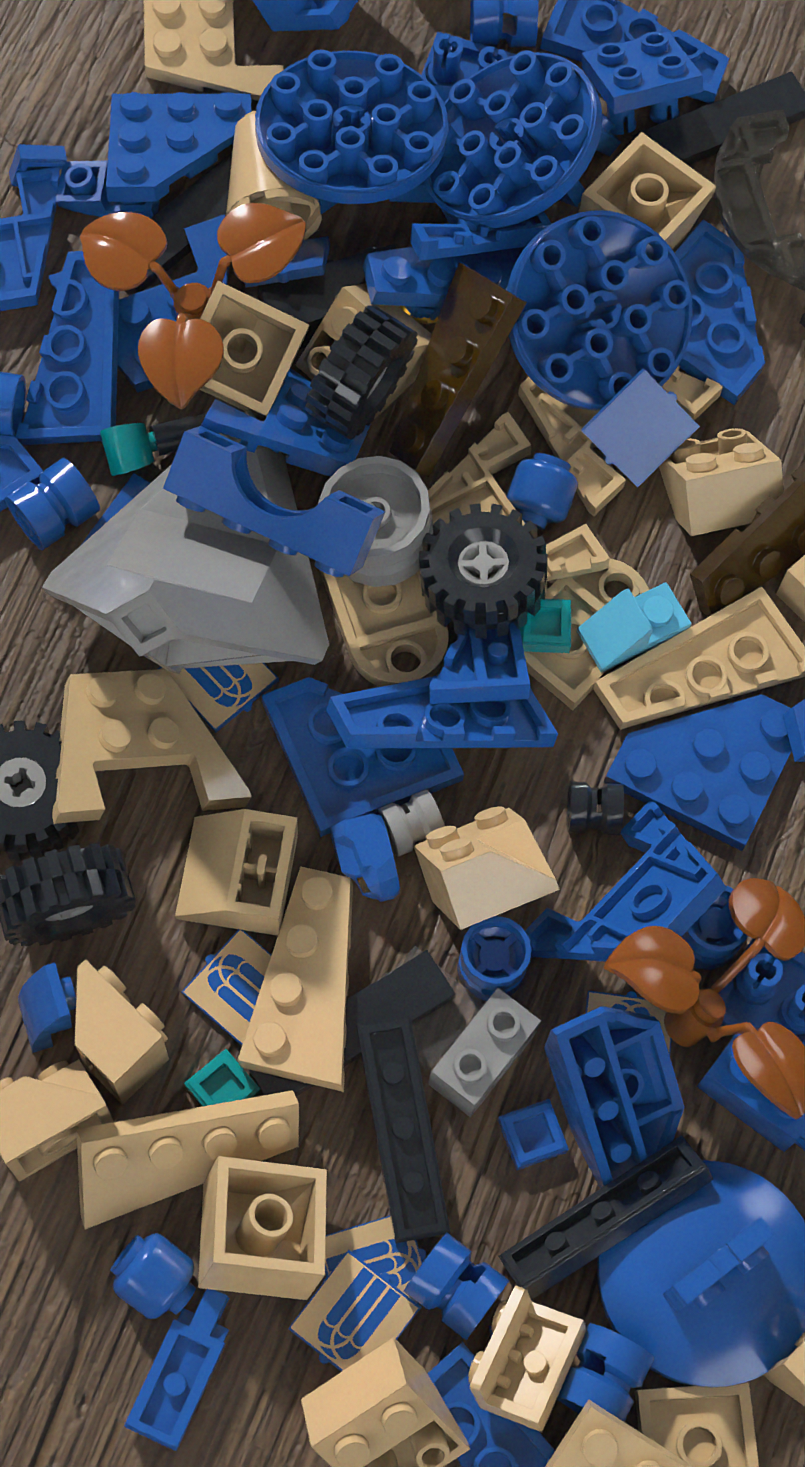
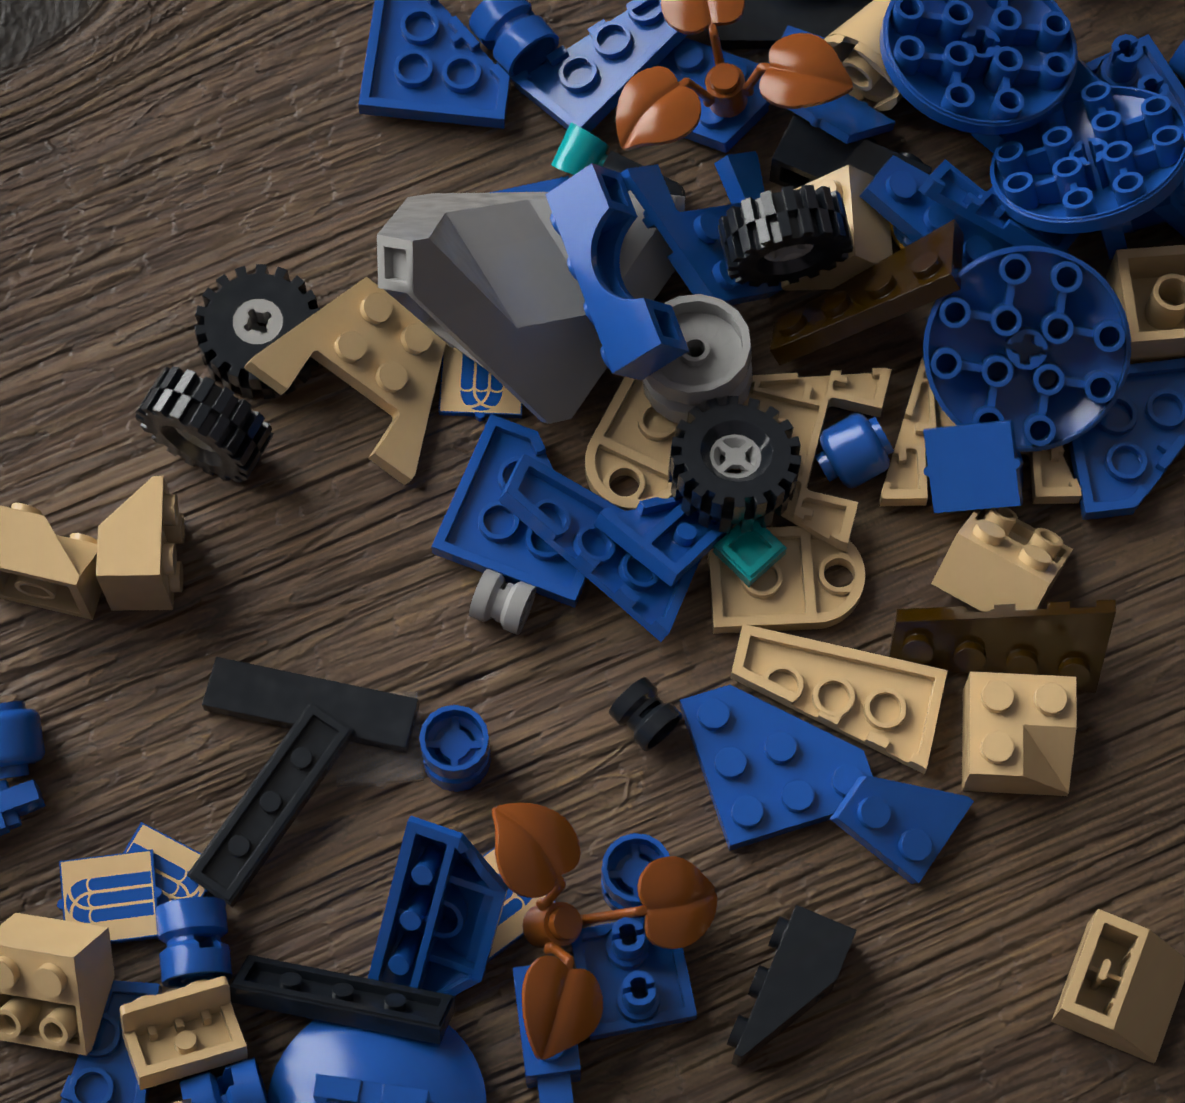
camera: 50 degrees right, 0 degrees up
(46, 1006) = (121, 484): blue slope -> none
(47, 507) = (485, 147): blue wheel -> none
(168, 1153) = (99, 667): tan wing -> none
(221, 1082) = (185, 661): teal tile -> none
(230, 984) = (271, 611): piece -> none
(238, 870) = (347, 524): tan slope -> none
(257, 349) = (727, 152): tan slope -> none
(263, 1228) = (105, 774): tan slope -> none
(302, 1001) = (296, 650): tan wing -> none
(366, 855) = (445, 595): blue rock -> none
(484, 867) = (511, 674): tan slope -> none
(484, 1052) = (377, 804): light grey brick -> none
(532, 1134) = (359, 898): blue tile -> none
(632, 625) = (812, 610): medium azure slope -> none
(663, 889) = (603, 810): blue wing -> none

